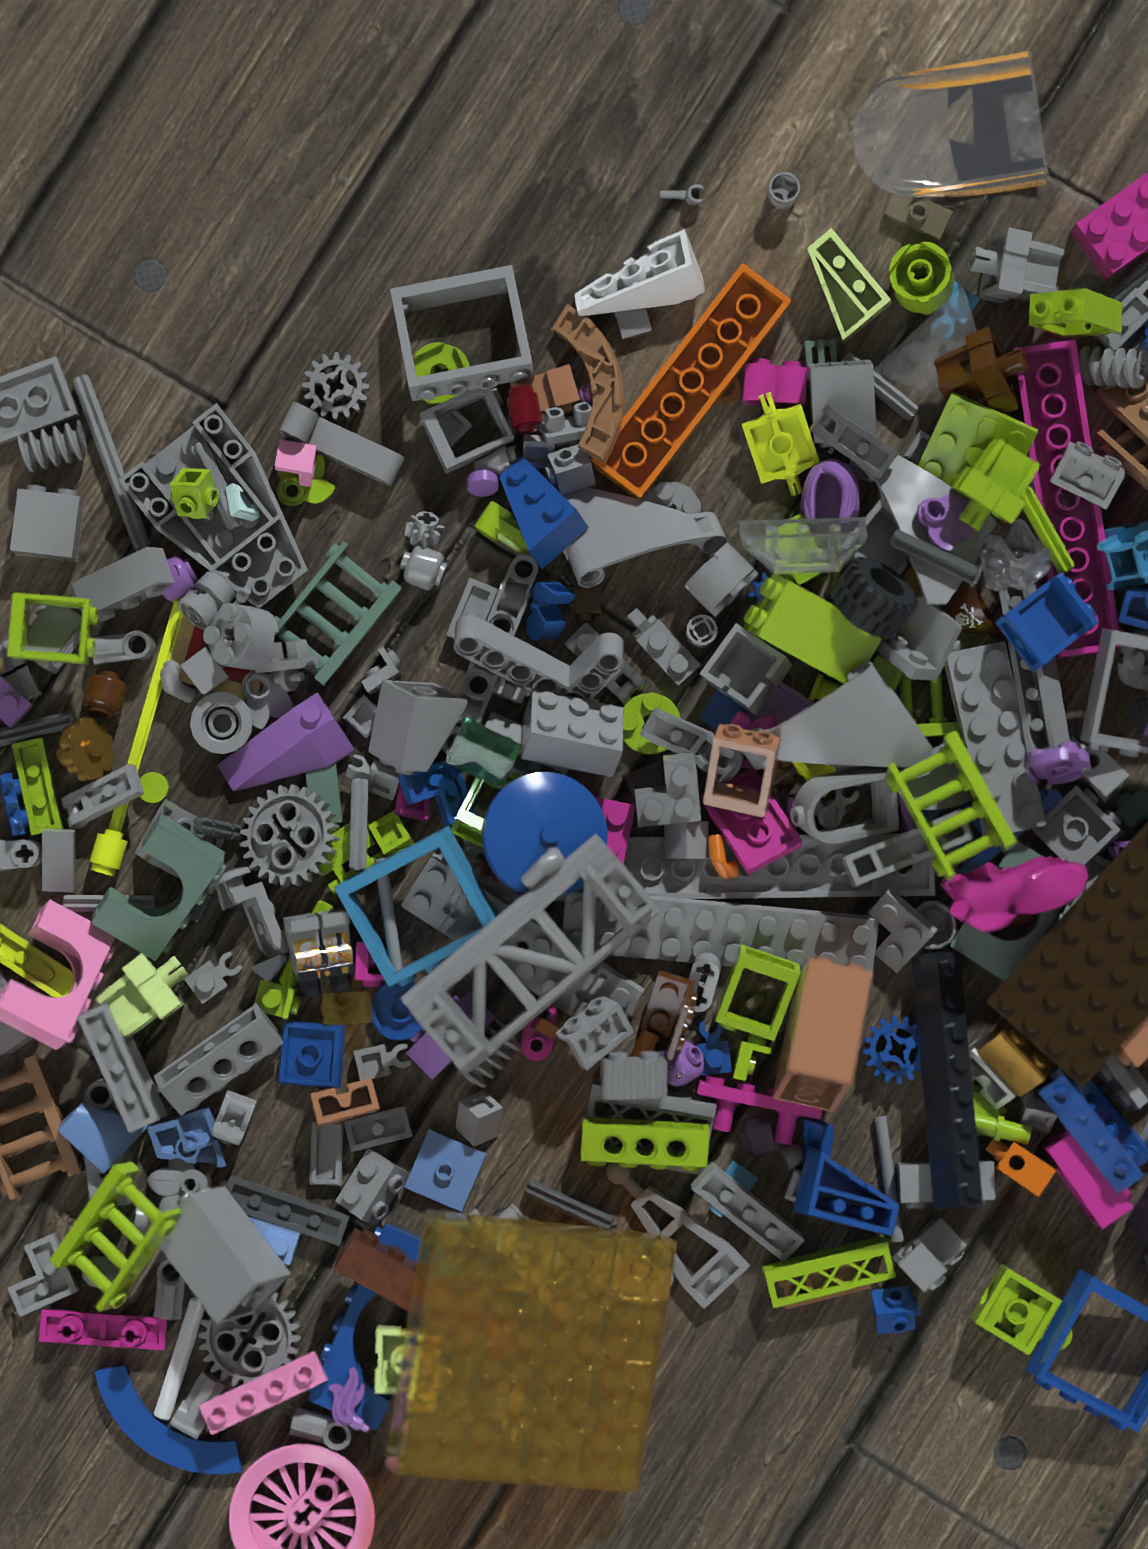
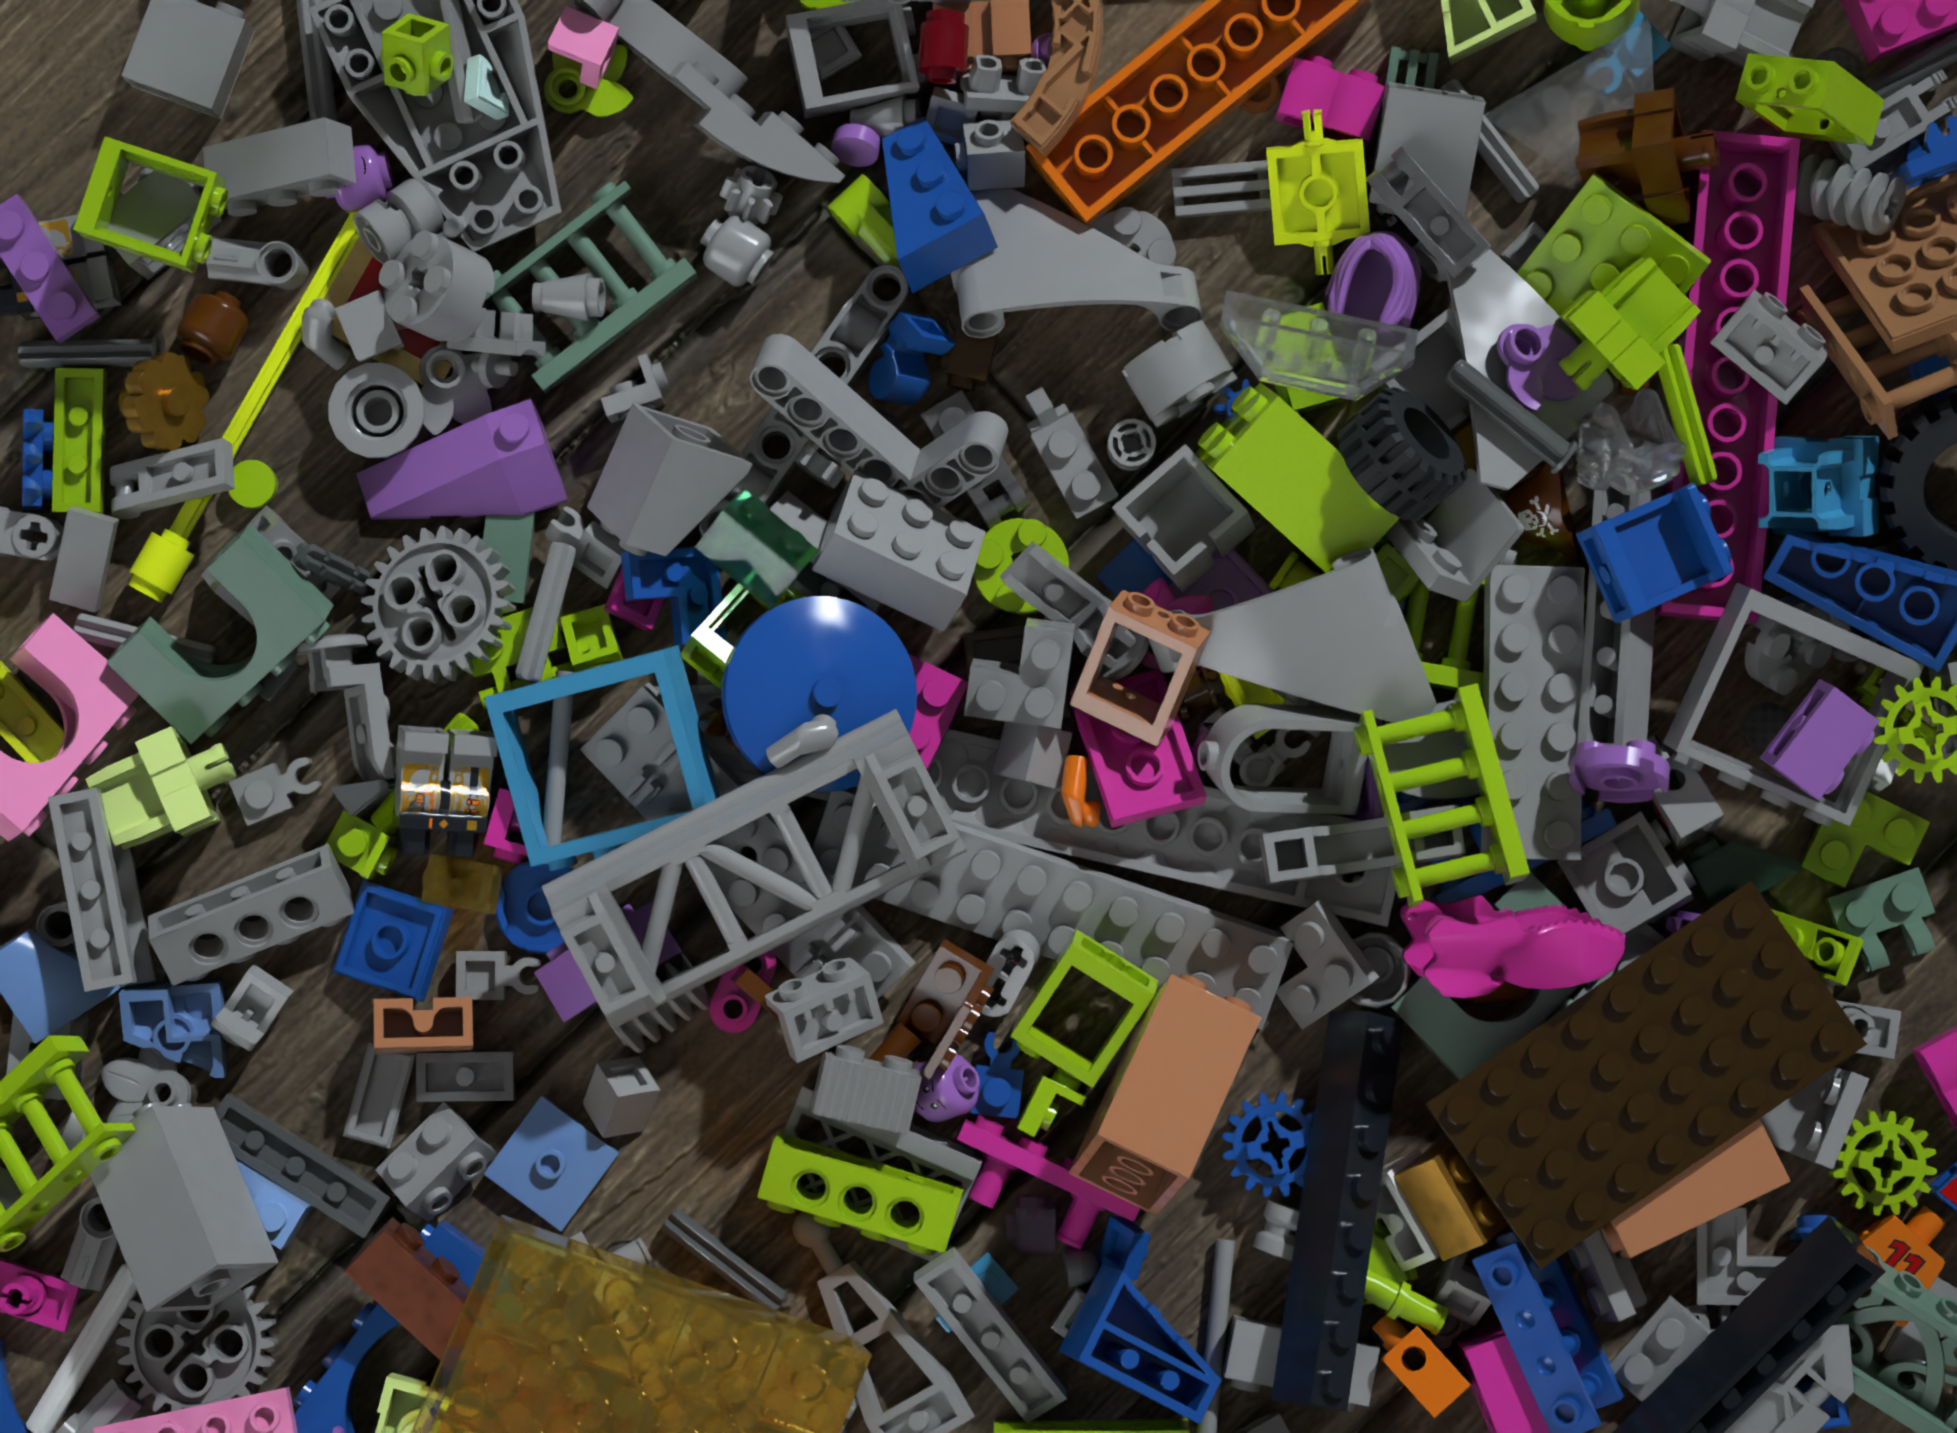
camera: 15 degrees right, 0 degrees up
(327, 622) = (571, 297): none -> light grey cone
(362, 716) = (591, 451): light grey tile -> none
(427, 495) = (768, 143): none -> light grey slope
(475, 601) = (802, 318): light grey plate -> none
(713, 445) = (1220, 170): none -> light grey tile
(912, 1103) = (1278, 1231): none -> light grey wheel

